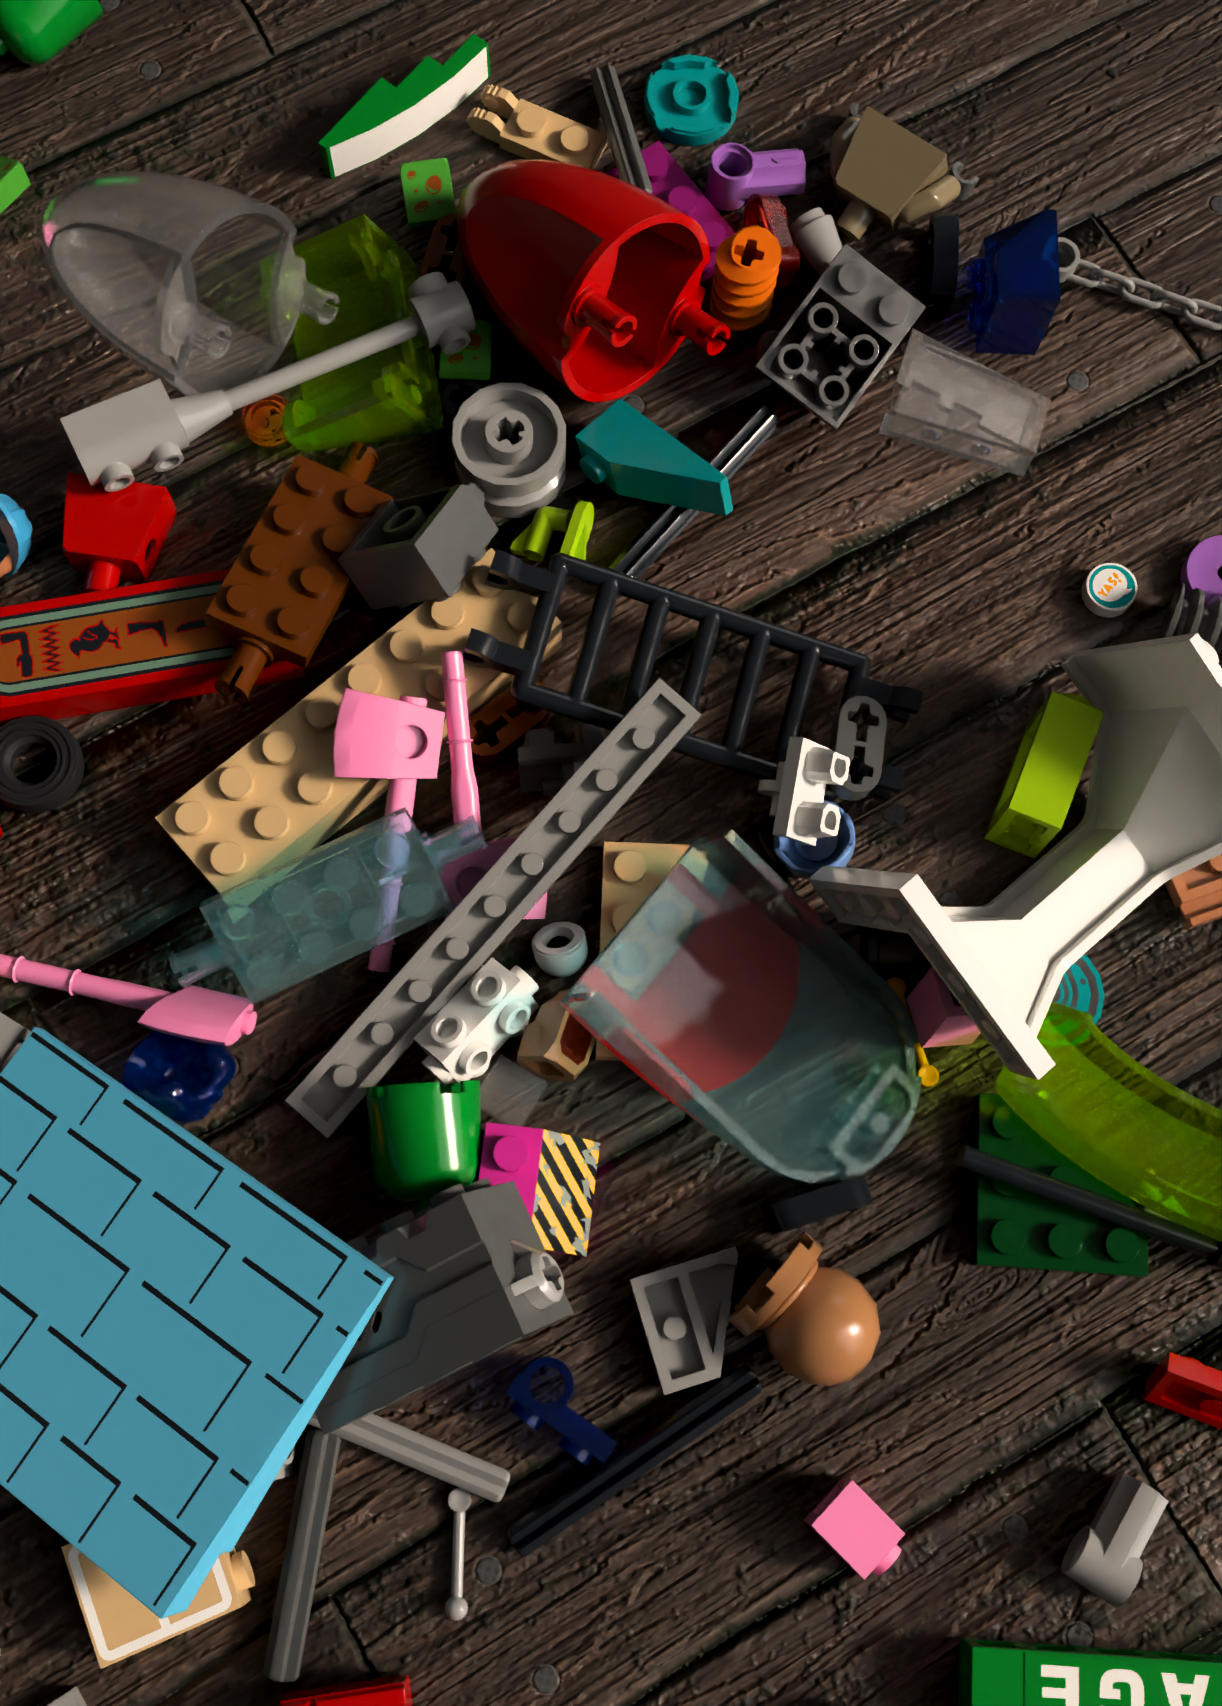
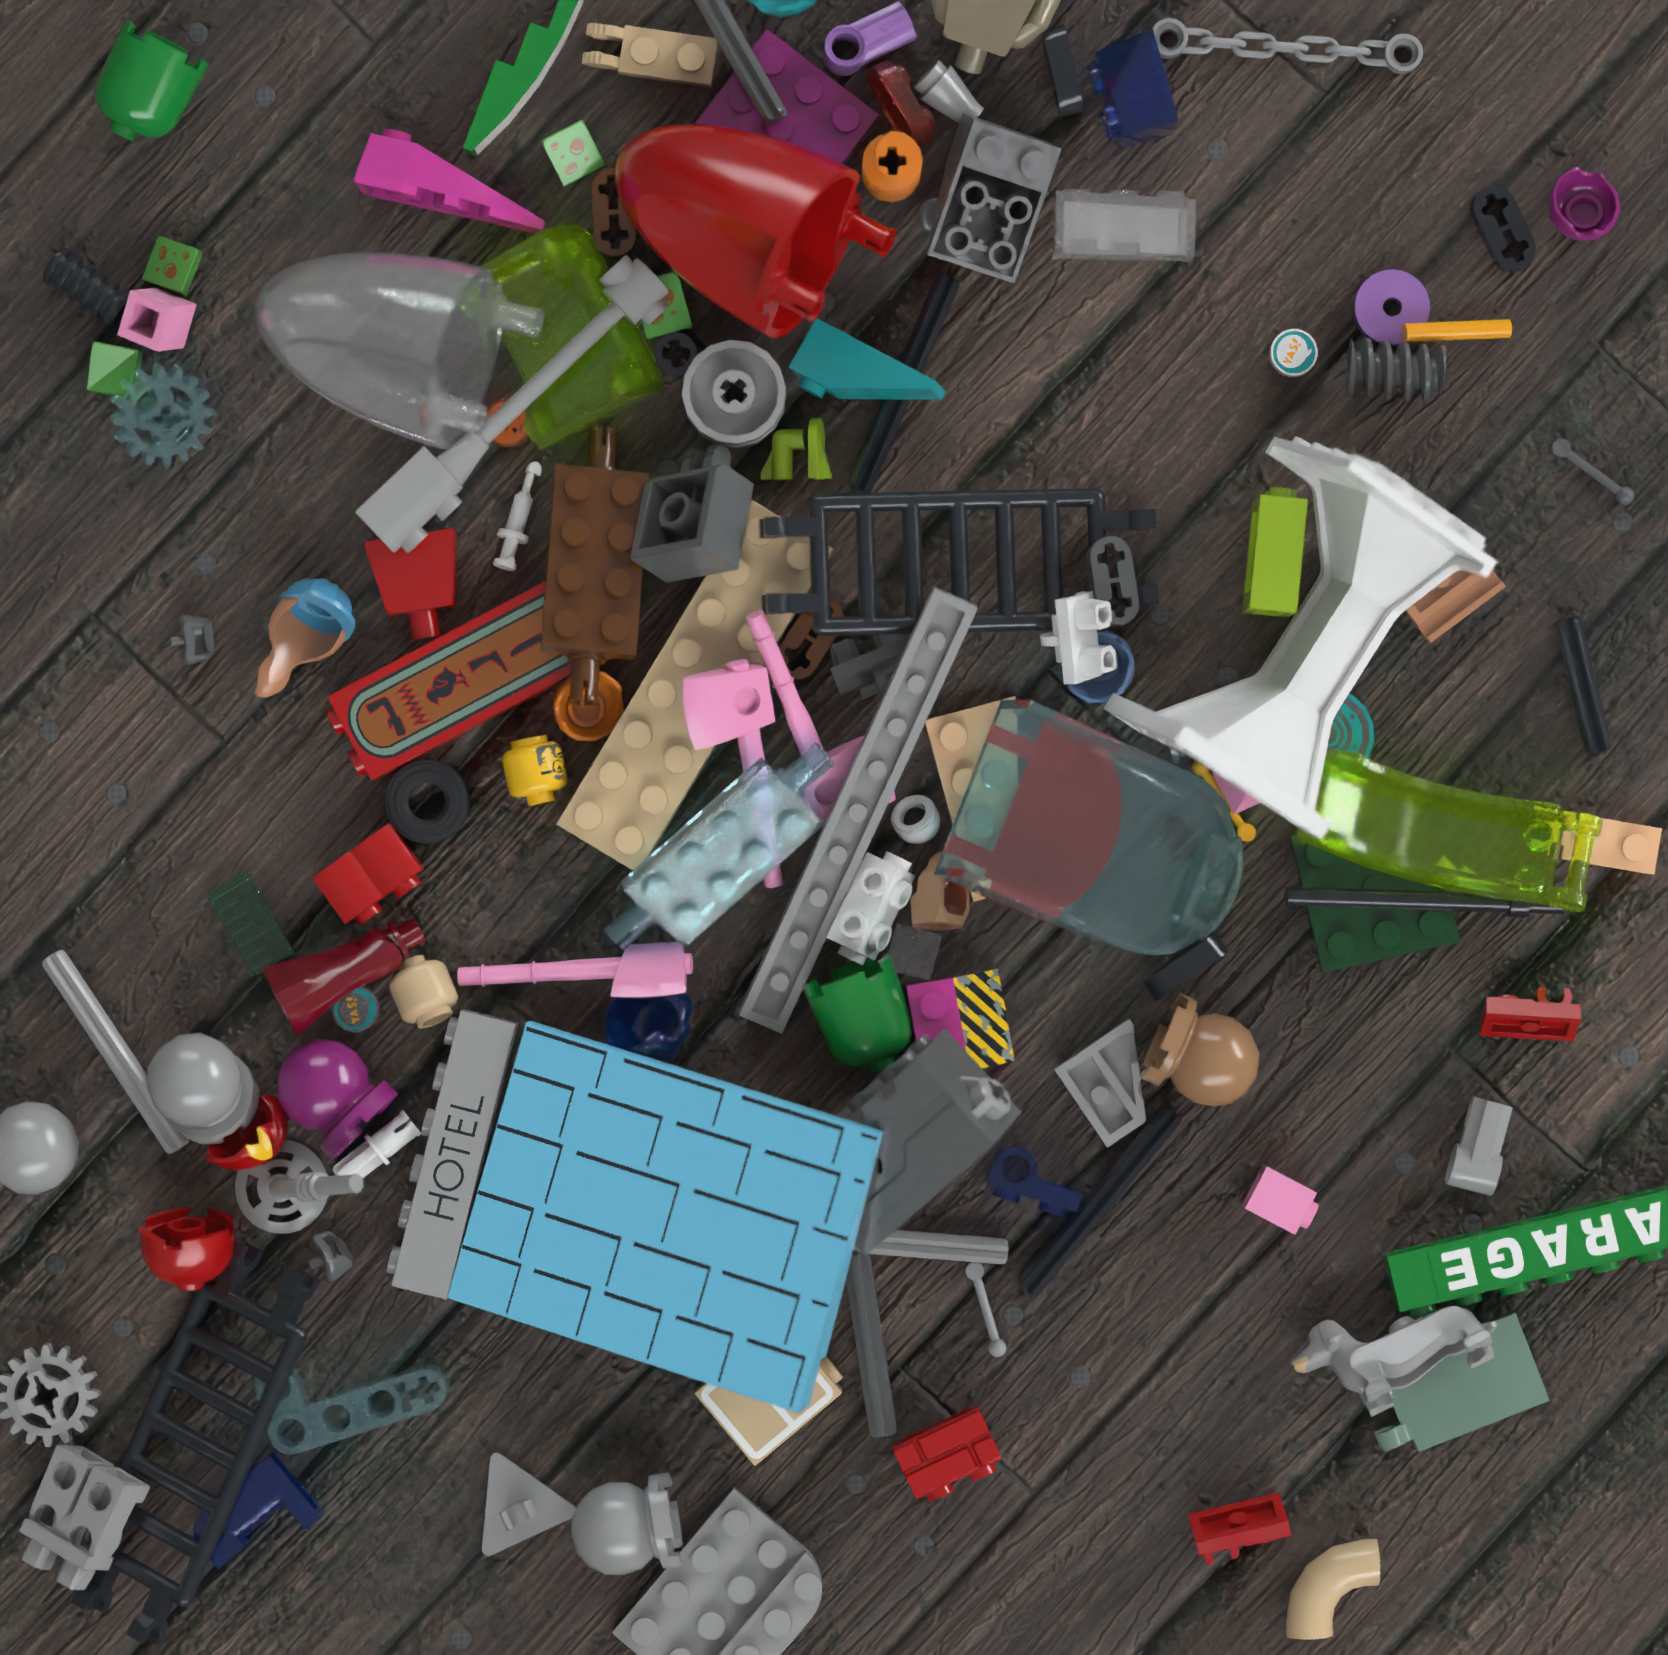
camera: 10 degrees left, 15 degrees up
(160, 762) = (534, 769): none -> yellow head
(232, 523) = (517, 521): none -> white piece
(236, 724) = (589, 722): none -> orange hair
(257, 160) = (414, 176): none -> dark pink wedge

